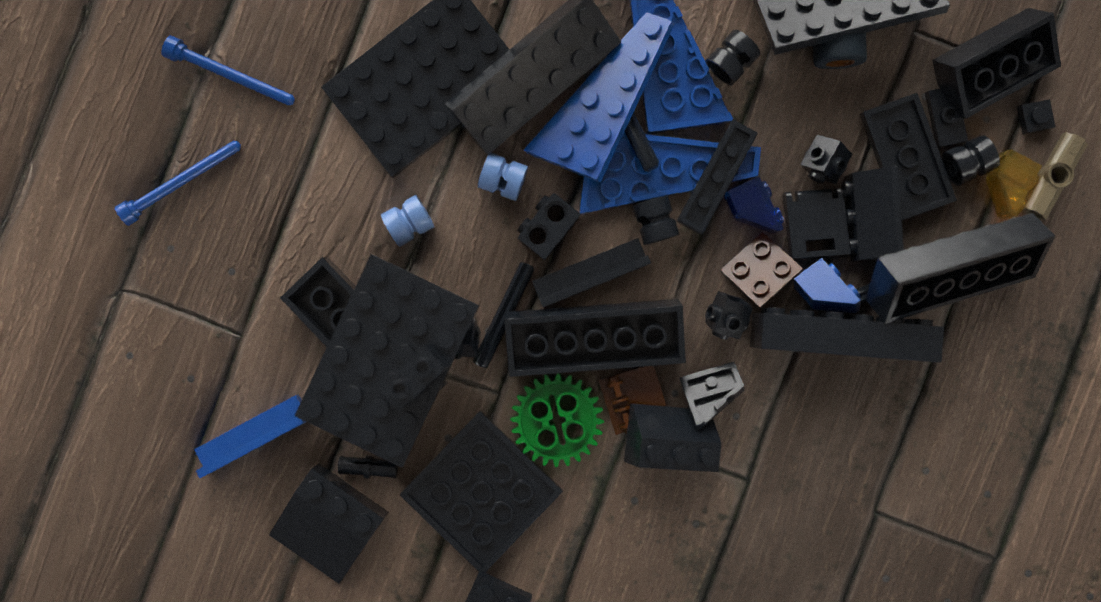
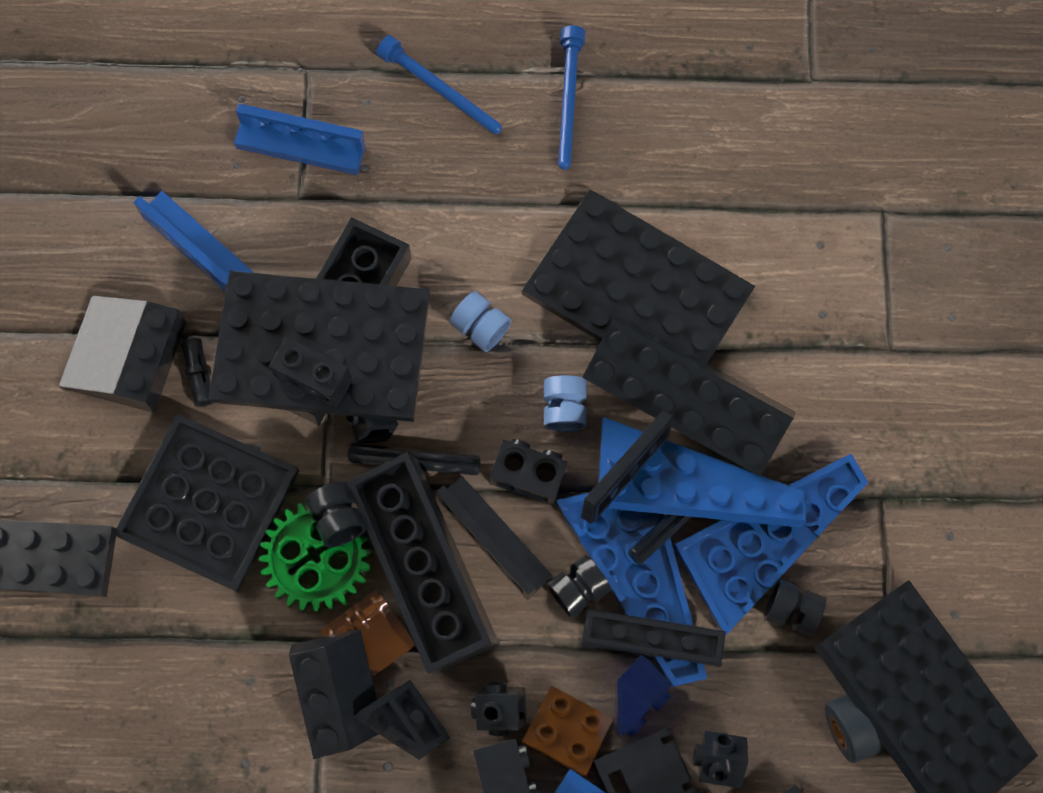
camera: 65 degrees right, 15 degrees down
(187, 318) = (299, 139): none -> blue fence
(532, 394) = (337, 518): none -> black wheel
(581, 145) = (627, 467): none -> black tile

